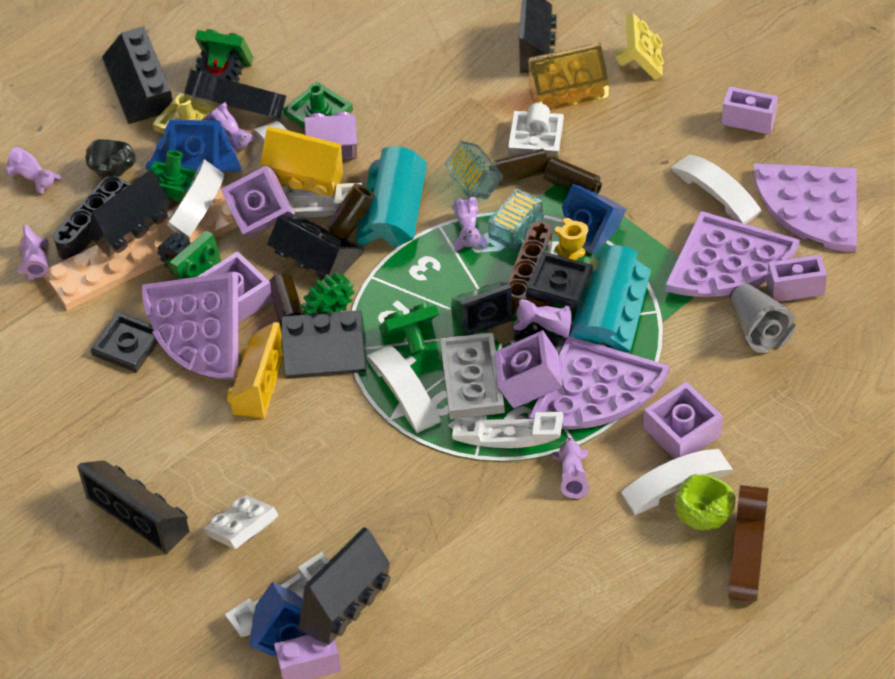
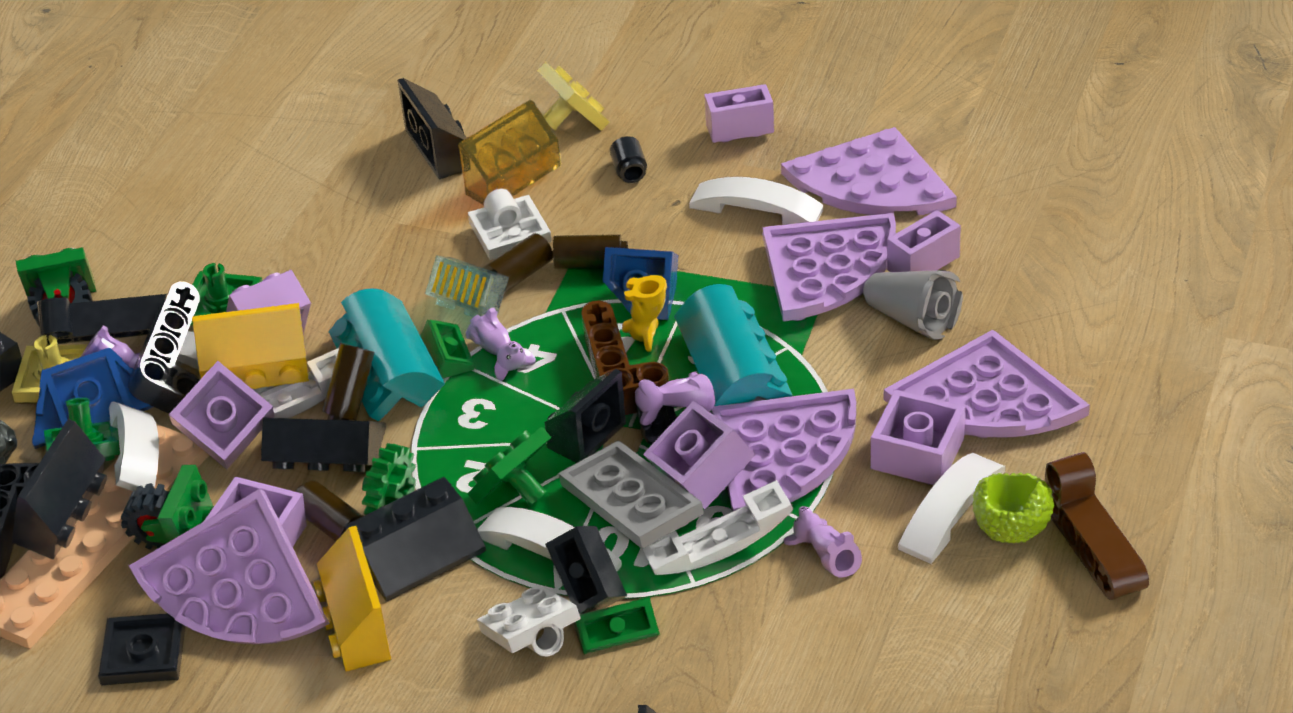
camera: 30 degrees left, 10 degrees down
(257, 131) = (155, 376): none -> black beam
(358, 430) = (518, 622): none -> white plate
(403, 417) = (586, 569): none -> black brick
(407, 463) = (616, 625): none -> green slope
(435, 211) = (447, 348): none -> green slope
(514, 218) = (554, 317): clear light blue brick -> none
(559, 280) = (662, 350): black tile -> none
(651, 114) = (628, 159): none -> black brick
(762, 409) = (1000, 388): none -> lavender plate

